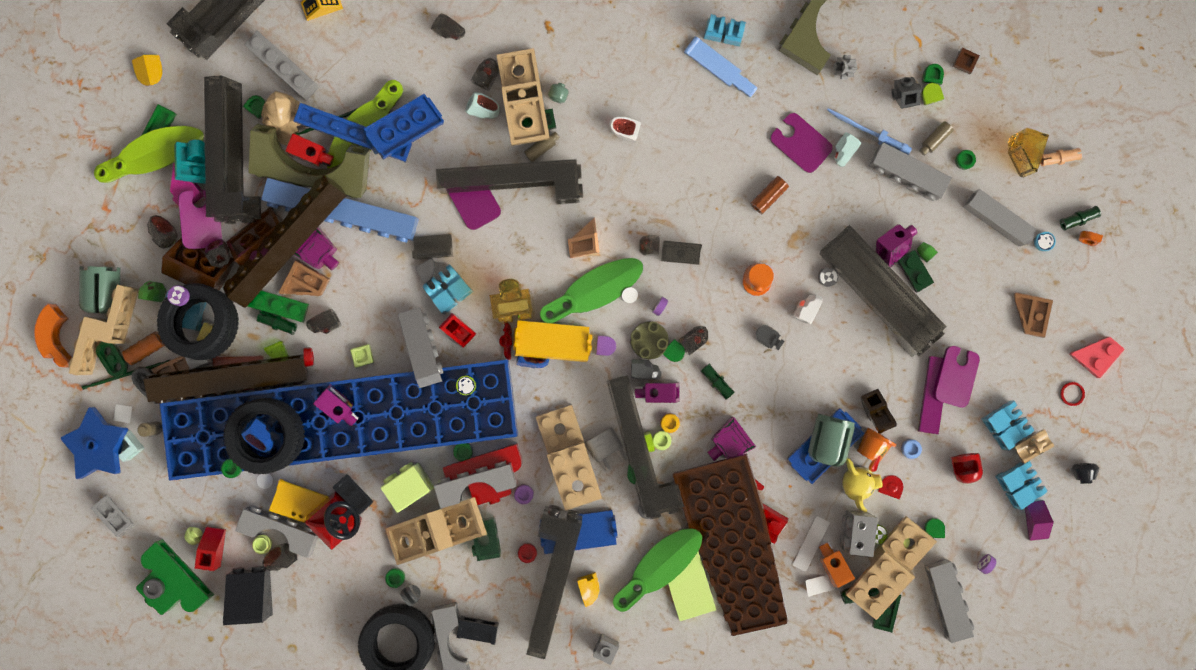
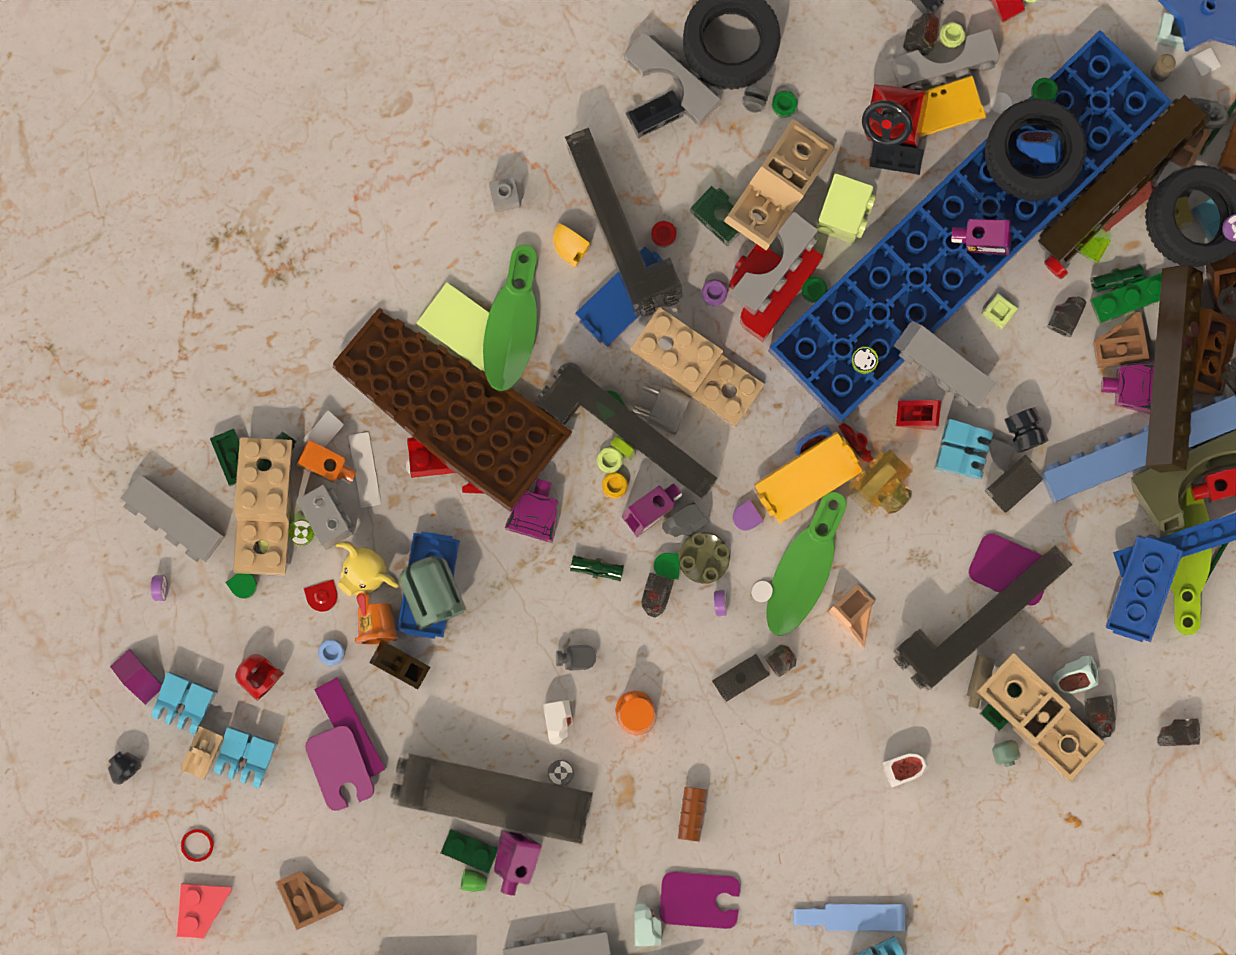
camera: 145 degrees right, 5 degrees down
(400, 272) = (1026, 430): none -> black wheel

